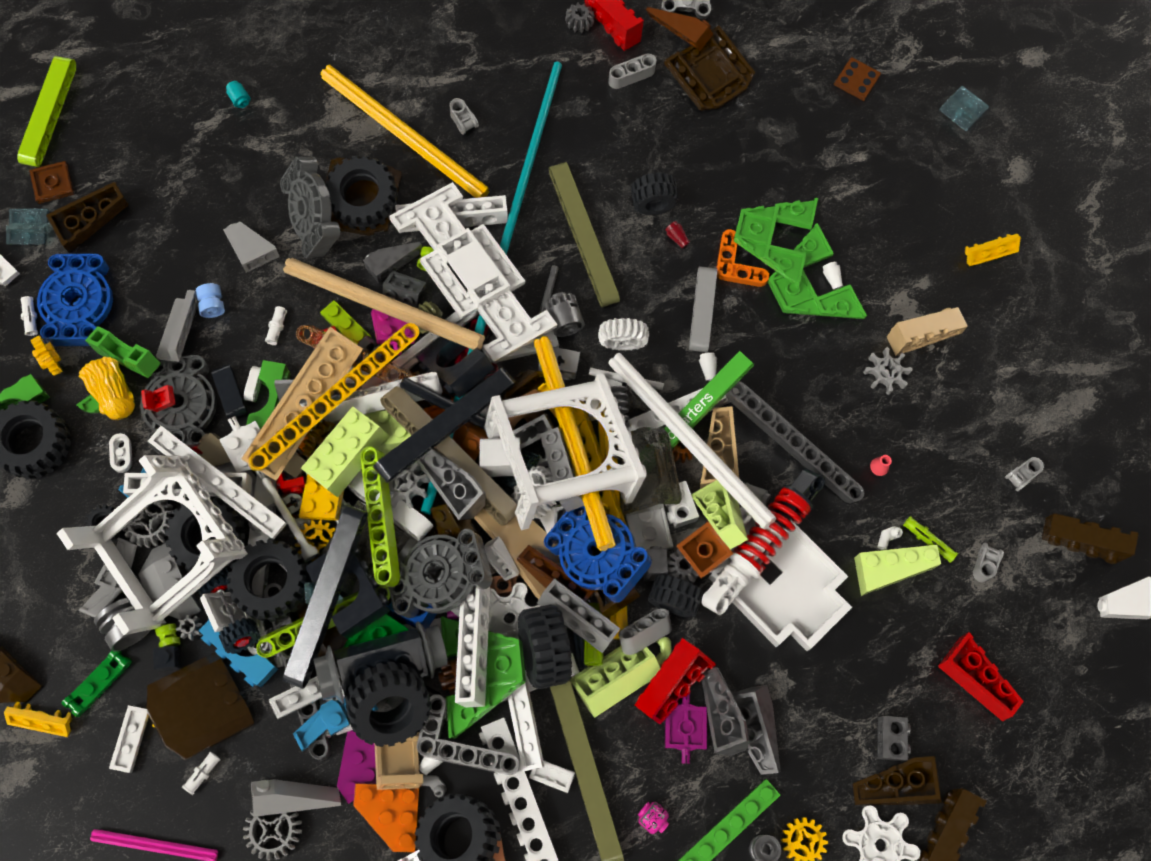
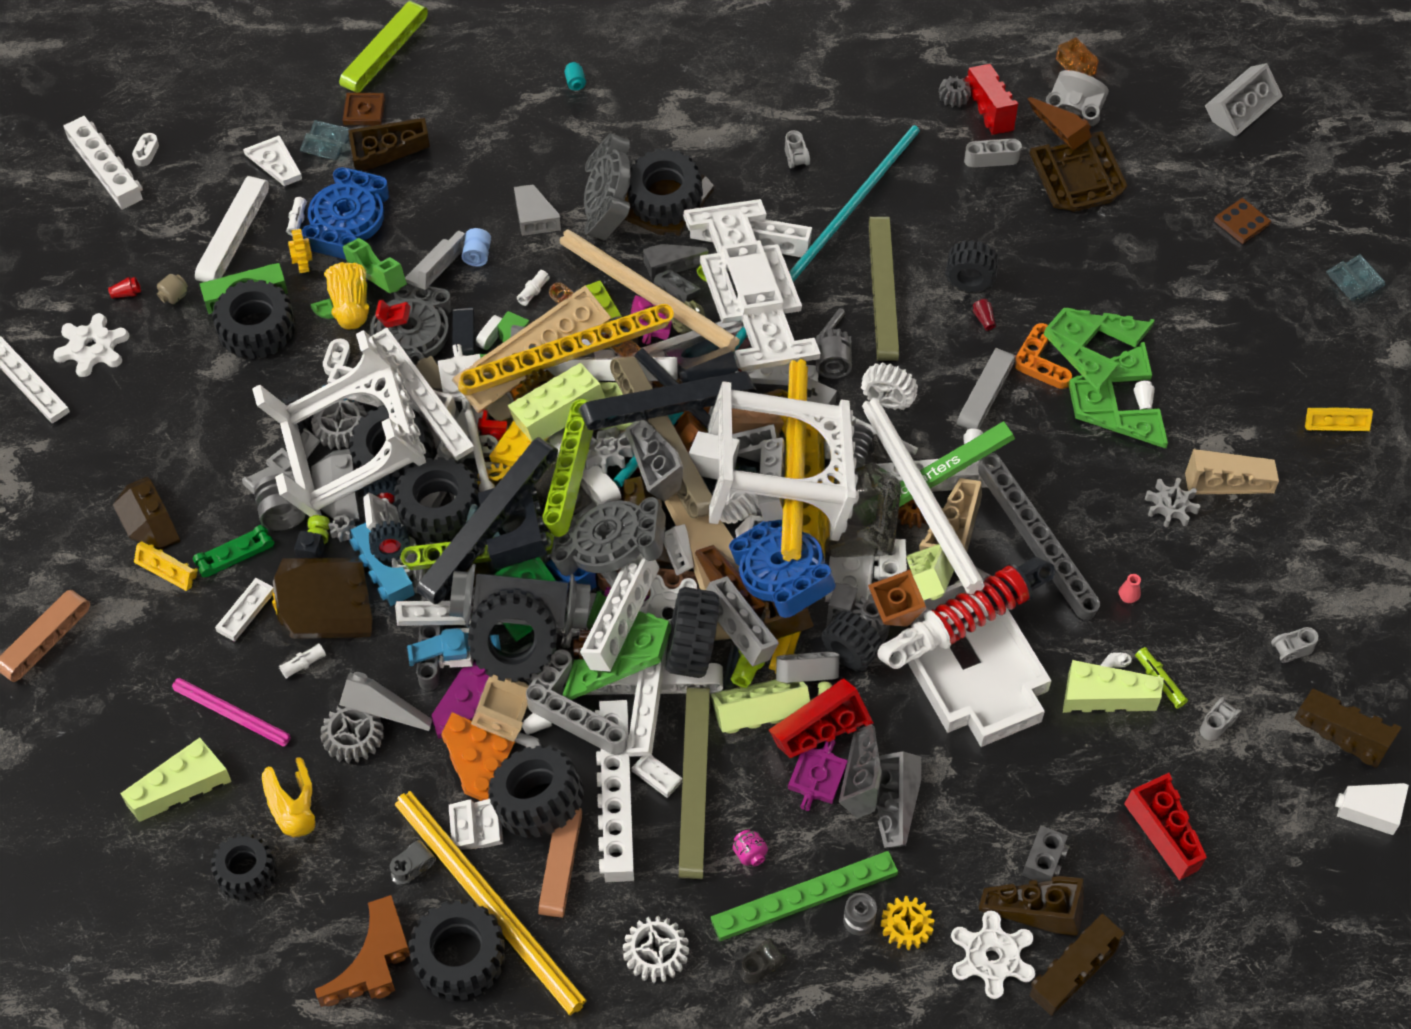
camera: 25 degrees right, 15 degrees down
(404, 132) = (729, 149): yellow axle -> none

